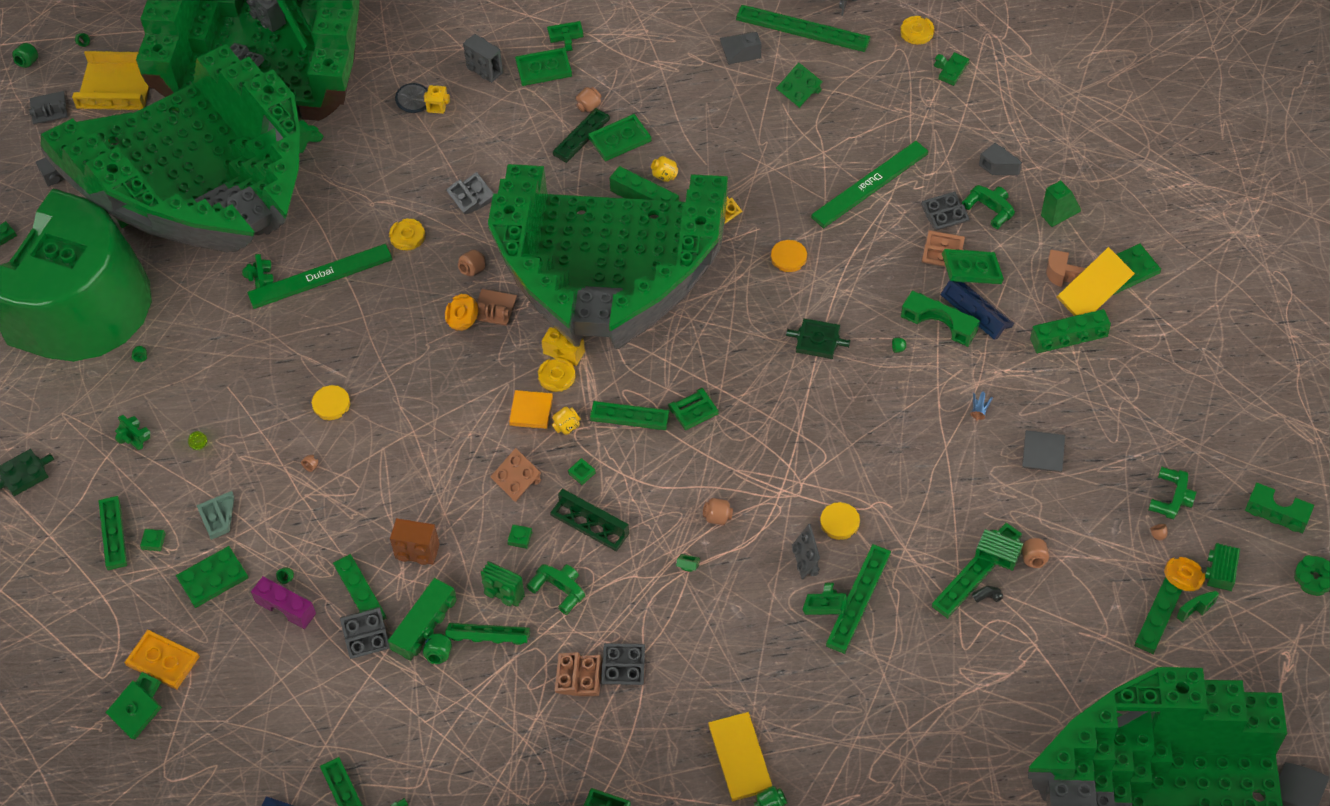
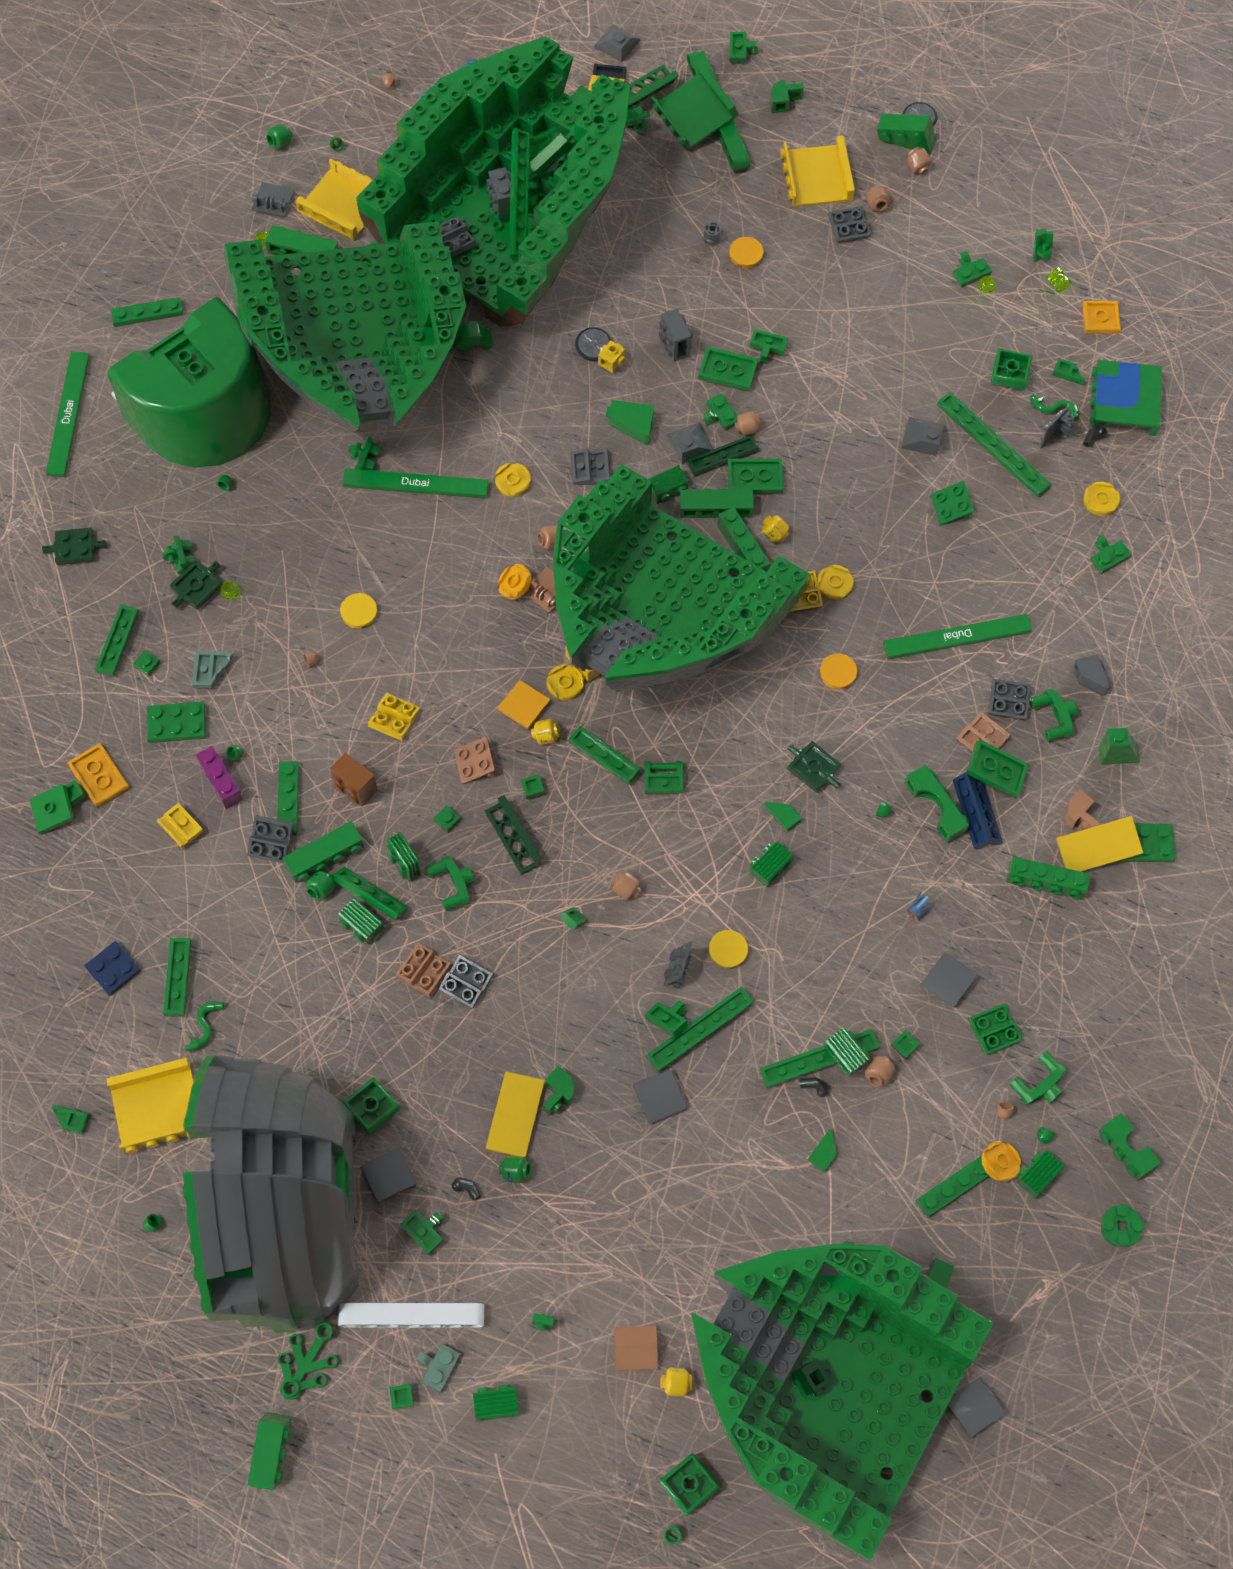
camera: 25 degrees right, 10 degrees up
(162, 450) = (195, 585): none -> dark green plate
(270, 663) = (180, 825): none -> yellow plate
(418, 474) = (394, 716): none -> yellow slope
(485, 140) = (632, 419): none -> green slope
(494, 661) = (360, 921): none -> green brick
(545, 137) = (689, 442): none -> dark grey slope
(554, 173) = (668, 484): none -> green brick
(558, 101) = (720, 411): none -> green plate
(597, 173) = (710, 503): none -> green brick
(742, 188) = (835, 582): none -> yellow tile
(767, 708) = (563, 1088): none -> green brick
(816, 389) = (784, 814): none -> green tile
(832, 432) = (771, 863): none -> green brick
(859, 672) = (659, 1096): none -> dark grey slope
(1031, 645) = (824, 1152): none -> green tile
(1041, 521) = (905, 1044): none -> green plate
(1106, 472) = (995, 1029): none -> green slope
(1200, 604) = (998, 1196): green slope -> none
(1205, 534) = (1045, 1135): none -> green hinge

